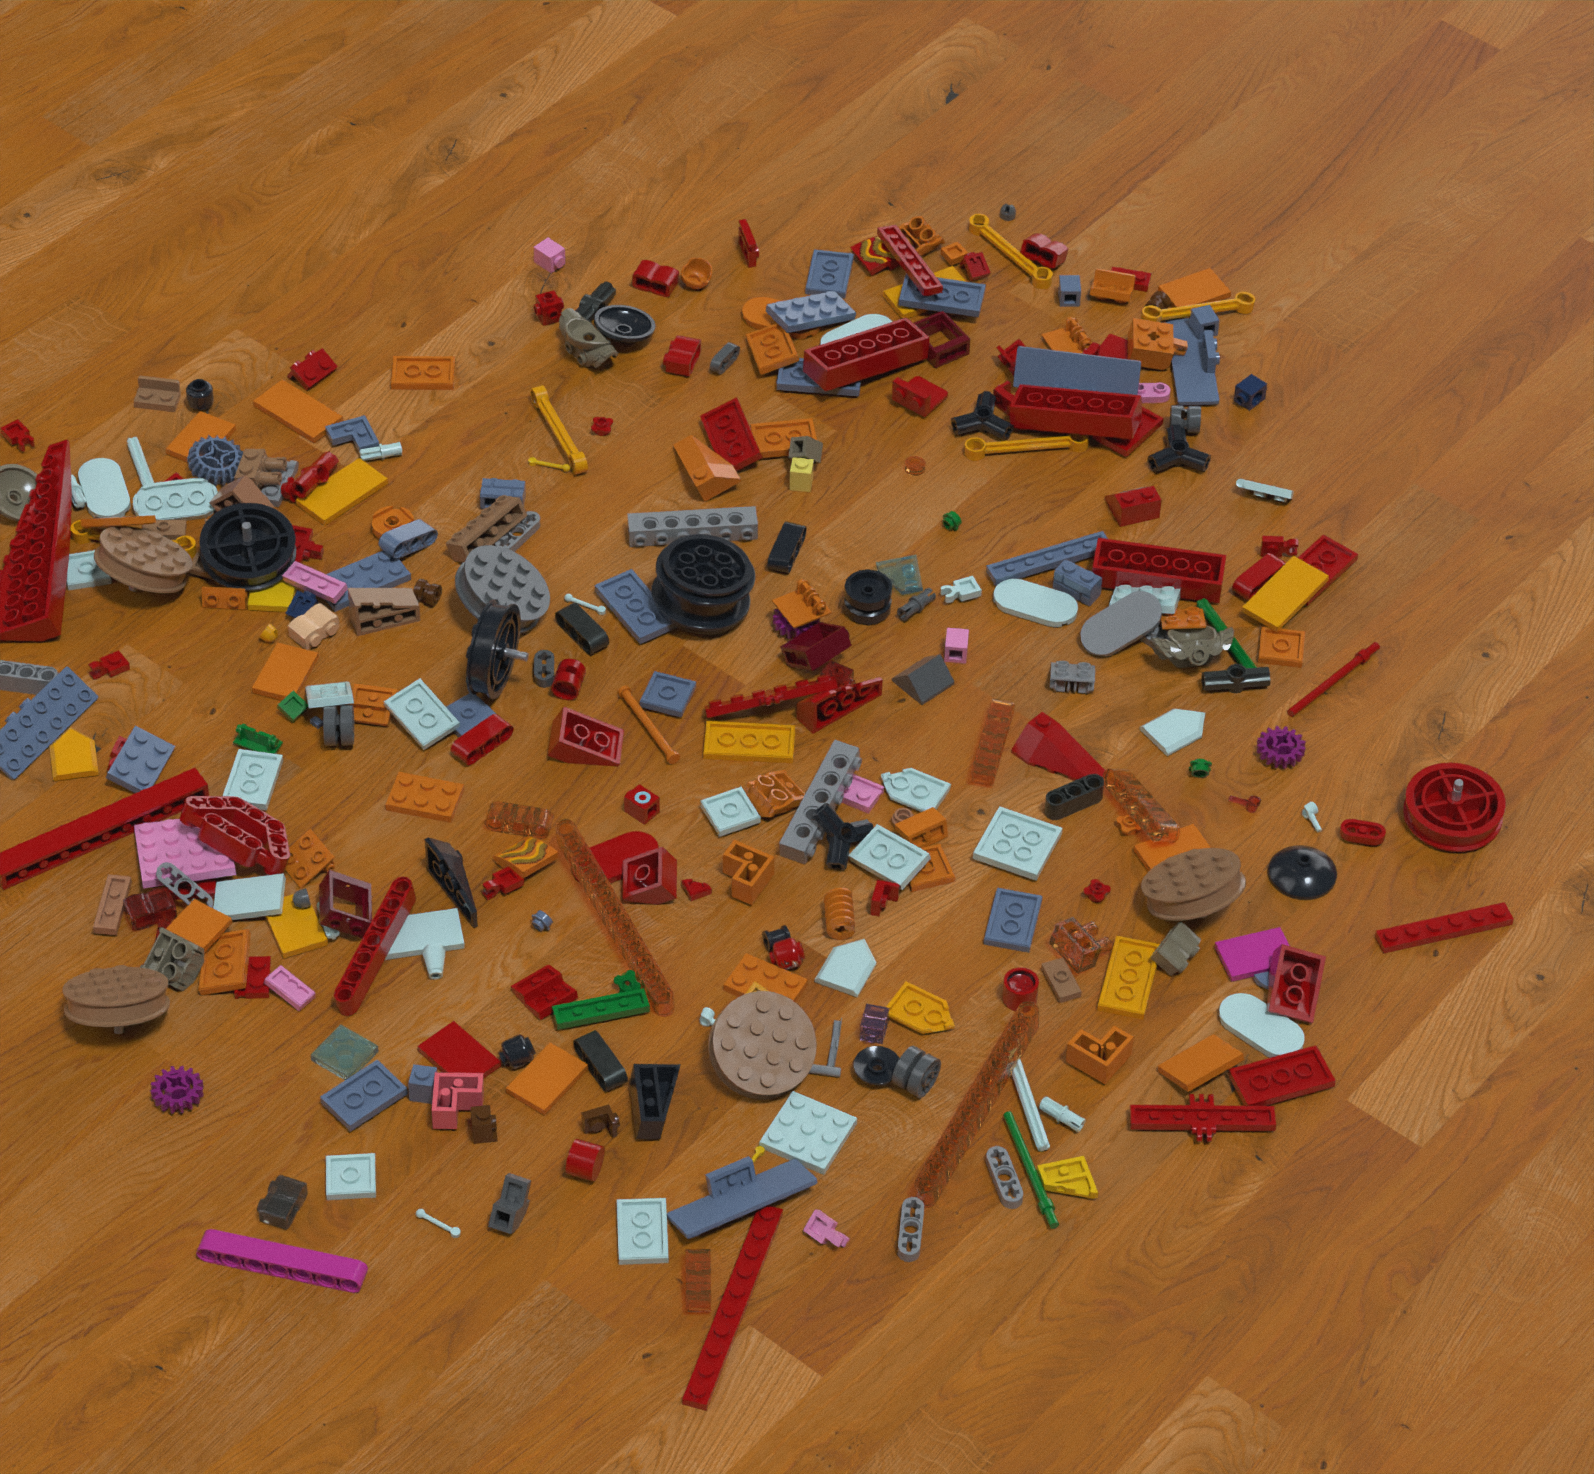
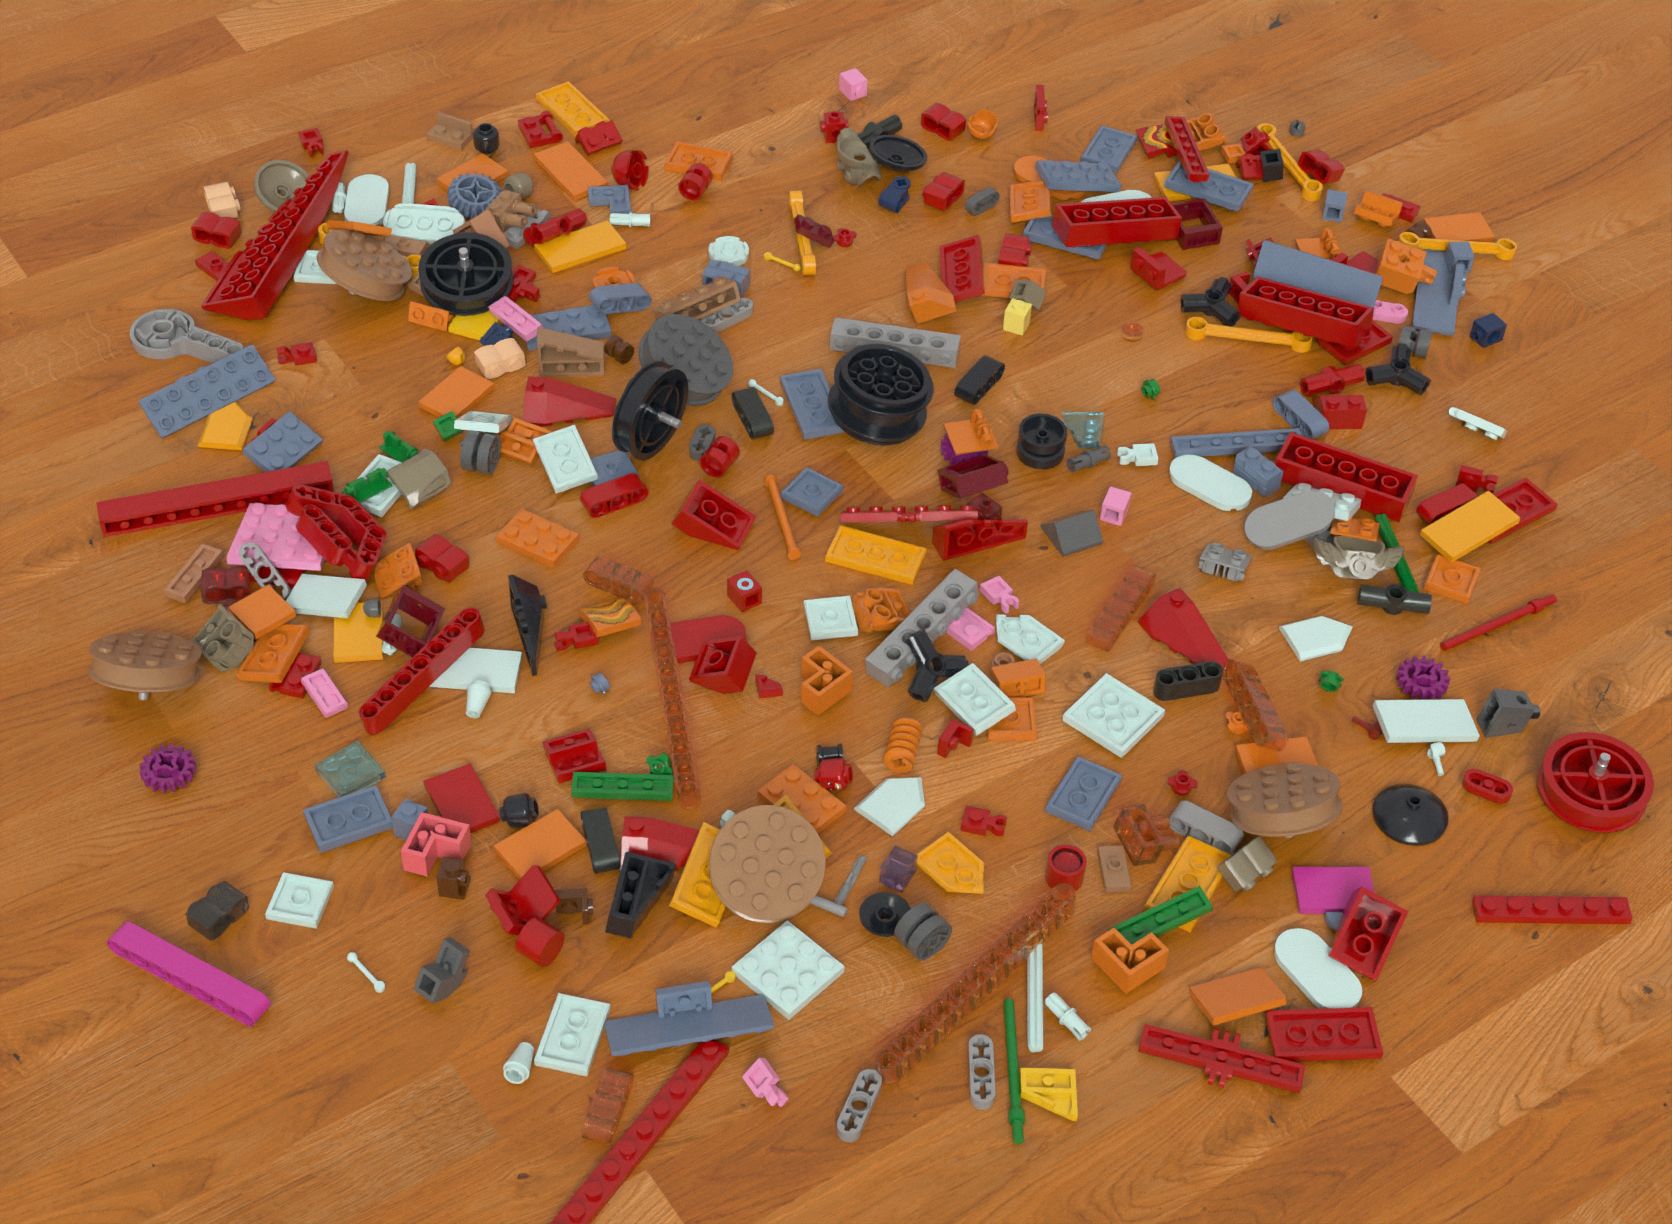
camera: 15 degrees right, 0 degrees up
(243, 377) = (534, 133): none -> red plate
(247, 782) = (366, 488): none -> green hinge
(254, 438) = (519, 183): none -> dark tan head
(270, 341) = (570, 107): none -> light orange tile
(291, 763) = (420, 478): none -> dark tan slope
(345, 836) = (442, 558): none -> red brick
(361, 398) = (630, 169): none -> red cylinder
(388, 658) = (556, 401): none -> red wedge
(432, 397) = (695, 181): none -> red wheel
(492, 464) = (729, 250): none -> light aqua tile
(558, 1128) = (528, 899): none -> red bracket
(571, 426) = (814, 231): none -> dark red plate
(607, 1267) = (519, 1064): none -> light aqua cone
(637, 369) = (895, 195): none -> dark blue piece
(661, 1048) = (657, 840): none -> red wedge
(702, 1082) = (695, 891): none -> light orange tile
(775, 405) = (1015, 250): none -> red brick
(875, 752) = (1000, 592): none -> bright pink plate
(929, 966) = (979, 820): none -> red plate
(974, 238) = (1255, 141): none -> red brick
(997, 259) = (1271, 165): none -> black brick
(1100, 516) = (1300, 414): none -> sand blue beam
(1119, 474) = (1332, 379): none -> red piece
(1121, 1009) = (1166, 916): none -> green plate
(1129, 924) = (1205, 826): none -> light grey beam
(1293, 785) = (1425, 721): none -> light aqua tile
(1362, 762) = (1506, 713): none -> dark grey torso

